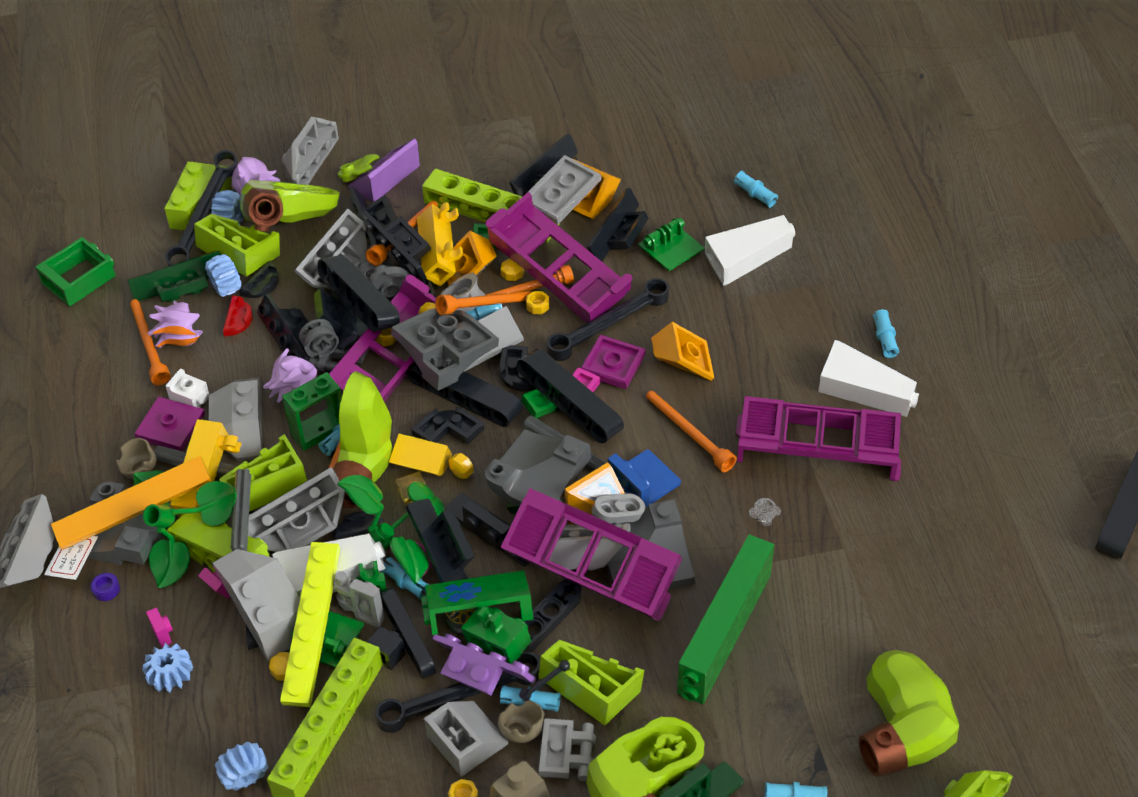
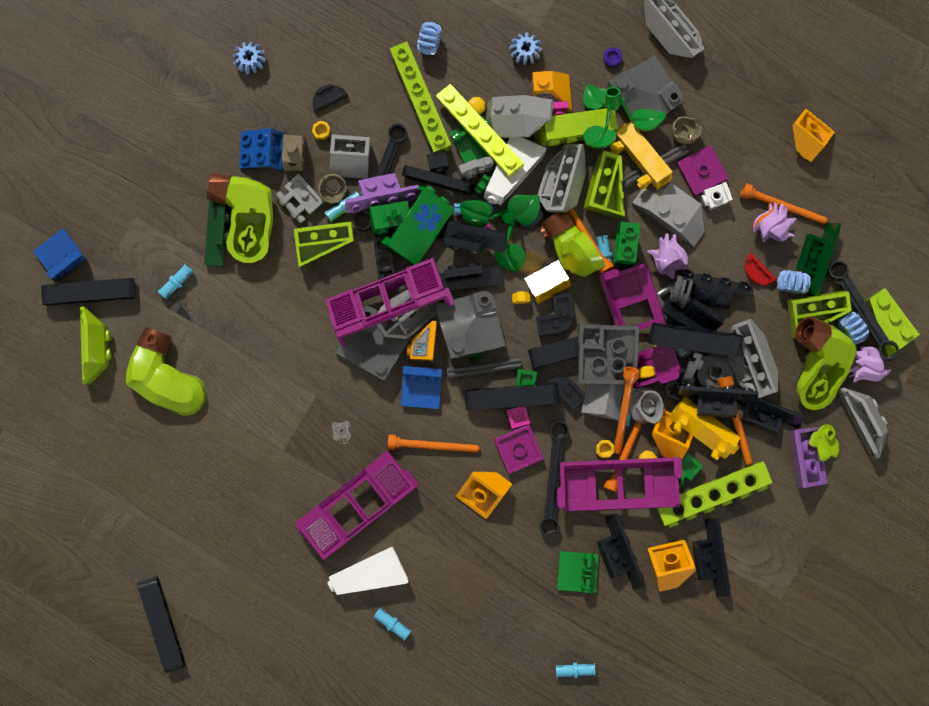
camera: 130 degrees right, 35 degrees up
(49, 361) = (810, 135): none -> light orange slope
(64, 260) = (882, 184): green window -> none
(69, 562) = (647, 52): white sticker -> none
(130, 502) = (646, 99): light orange tile -> none
(160, 626) = (555, 63): dark pink plate -> none
(201, 611) = (552, 86): none -> light orange slope
(240, 517) = (580, 144): dark grey axle -> none
(261, 283) = (774, 307): black tile -> none
(525, 694) = (332, 225): black hinge -> none
(563, 188) = (675, 537): light grey tile -> none
(618, 508) = (404, 343): light grey plate -> none
(725, 620) = (290, 336): green brick -> none
(748, 247) = (532, 608): white slope -> none

